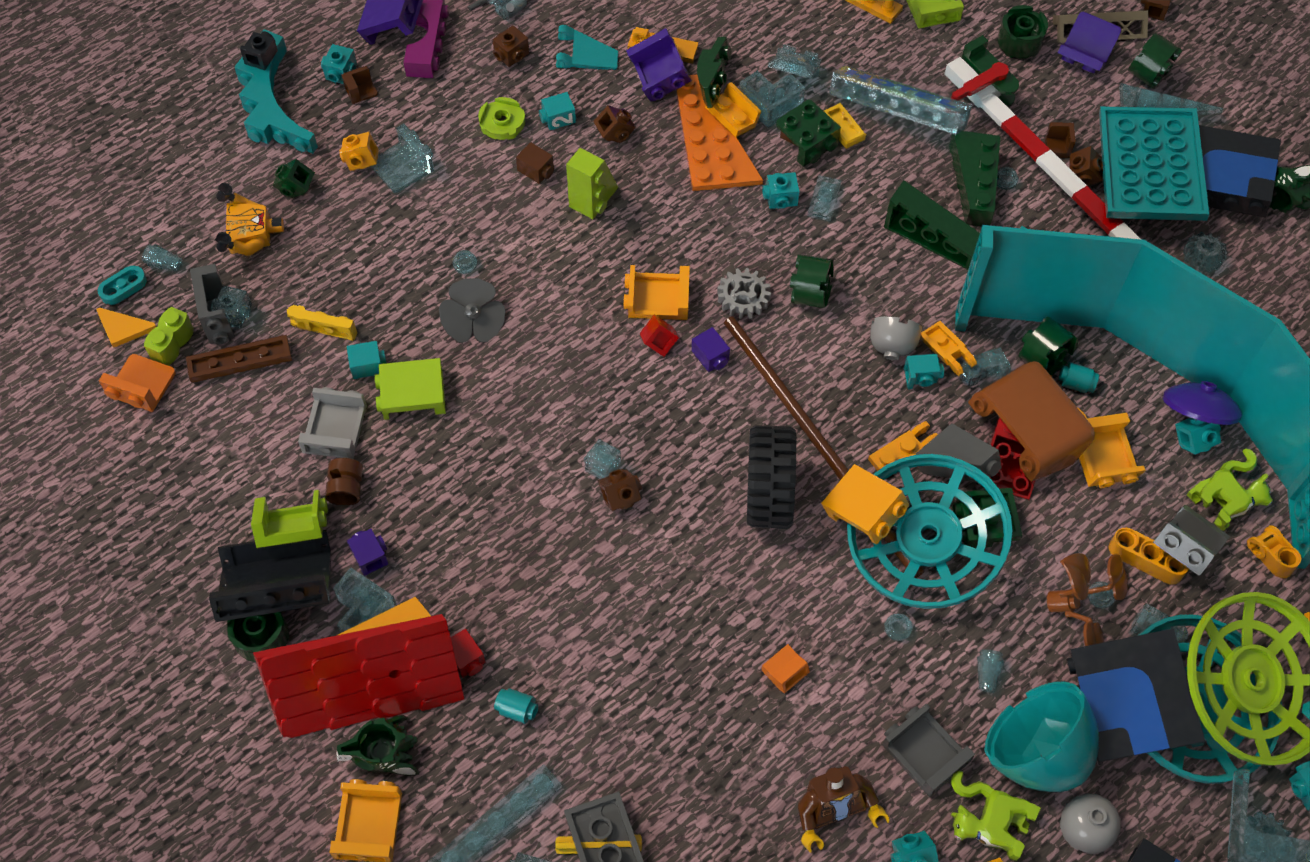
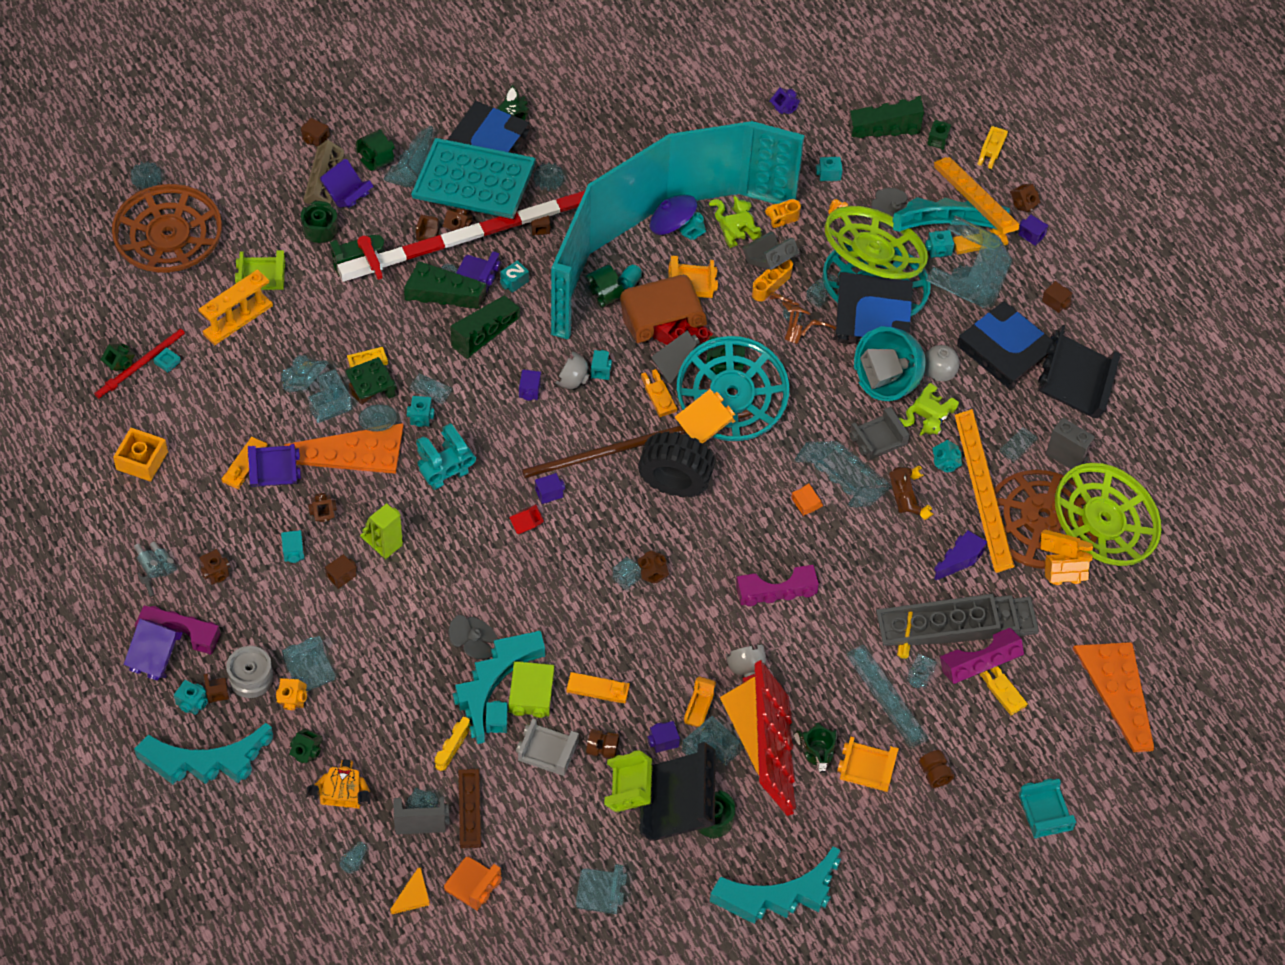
camera: 80 degrees left, 5 degrees down
(122, 285) = (372, 891): teal plate -> none
(141, 521) = (601, 890): none -> clear light blue bracket
(144, 743) = (752, 901): none -> teal arch
(171, 333) = (440, 856): lime brick -> none
(261, 46) = (166, 754): black brick -> none
(379, 106) = (249, 671): none -> light grey wheel
(423, 340) = (489, 673): none -> teal arch
(425, 586) = (700, 701): none -> light orange animal
(431, 465) = (598, 687): none -> light orange hinge
(464, 262) = (420, 638): clear light blue plate -> none
(497, 630) = (743, 660): none -> light grey cylinder
(504, 129) = (286, 578): lime plate -> none
(516, 705) = (802, 661): teal brick -> none
(586, 52) = (233, 516): teal flag -> none
(643, 681) = (755, 590): none -> magenta arch
(657, 294) = (489, 511): light orange panel -> none
(706, 221) = (453, 460): none -> teal piece
(711, 70) = (295, 431): dark green slope -> none
(735, 111) = (332, 425): light orange bracket -> none
(744, 293) = (504, 455): light grey gear -> none
(759, 151) = (377, 418): none -> clear light blue dish
(812, 281) = (511, 409): dark green brick -> none
(849, 714) = (845, 469): none -> clear light blue windscreen
(862, 297) = (529, 385): none -> dark purple brick
(898, 627) = (790, 429): clear light blue plate -> none
(900, 99) = (364, 313): clear light blue brick -> none
(947, 346) = (589, 342): light orange hinge -> none
(988, 364) = (607, 333): clear light blue leg -> none
(989, 669) = (831, 387): clear light blue cone -> none
(1018, 208) = (481, 269): none -> dark purple bracket
(1037, 727) = (882, 366): none -> light grey torso

